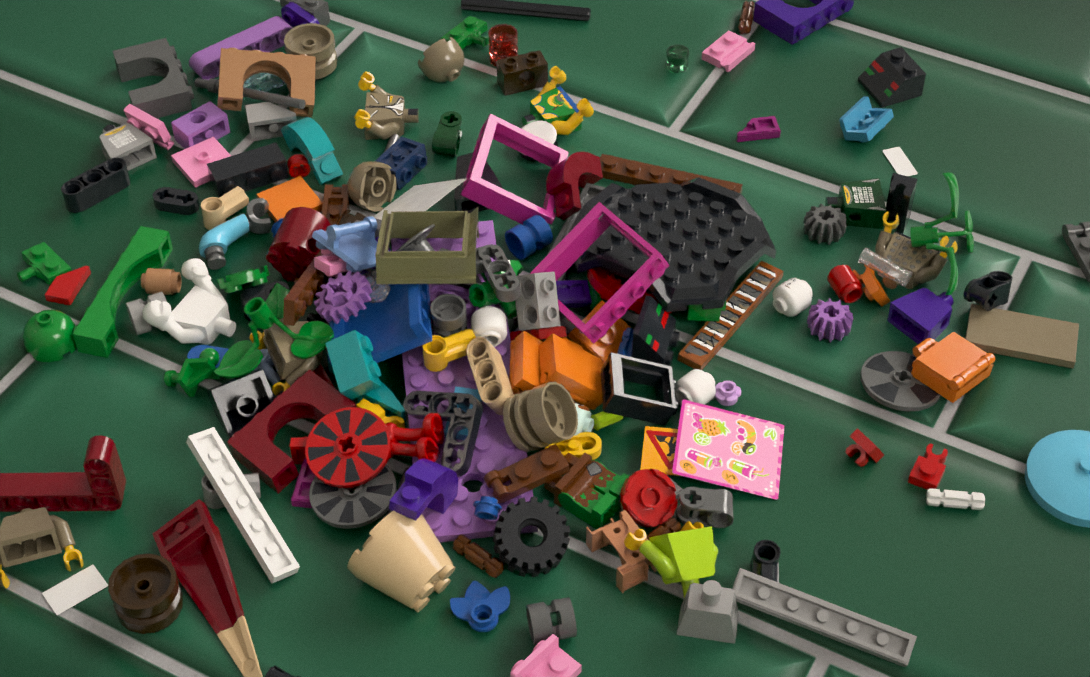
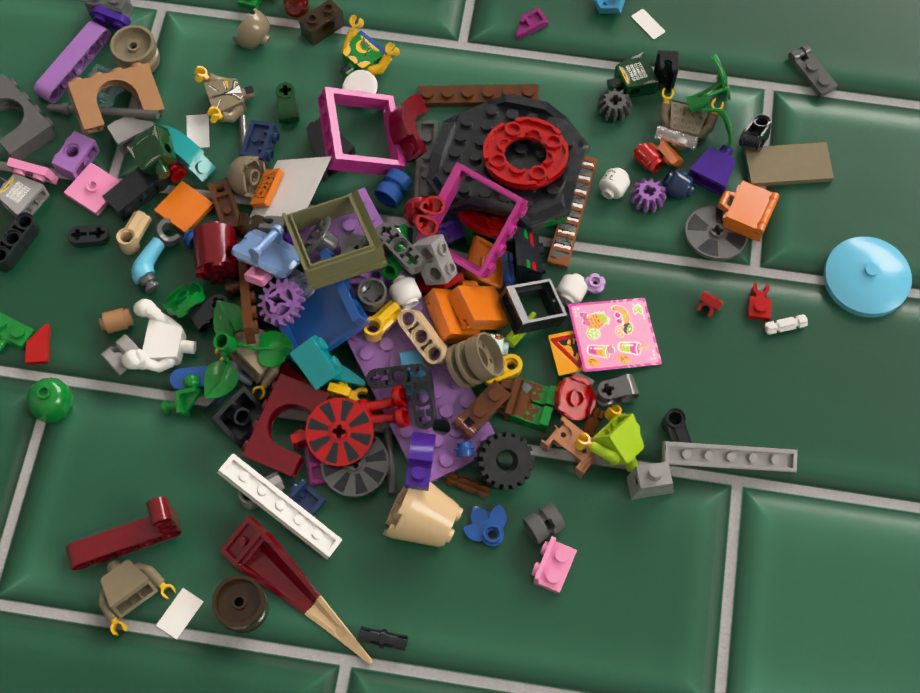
camera: 20 degrees left, 20 degrees up
(97, 329) = (90, 297): green arch -> none
(279, 130) = (153, 151): none -> dark green torso
(279, 508) = (306, 497): none -> dark blue bracket
(343, 138) = (198, 129): none -> white sticker
(389, 202) = (266, 188): none -> orange tile
(539, 254) = (415, 209): none -> red piece
(715, 211) = (532, 129): none -> red plate
(871, 318) = (678, 184): none -> dark blue head

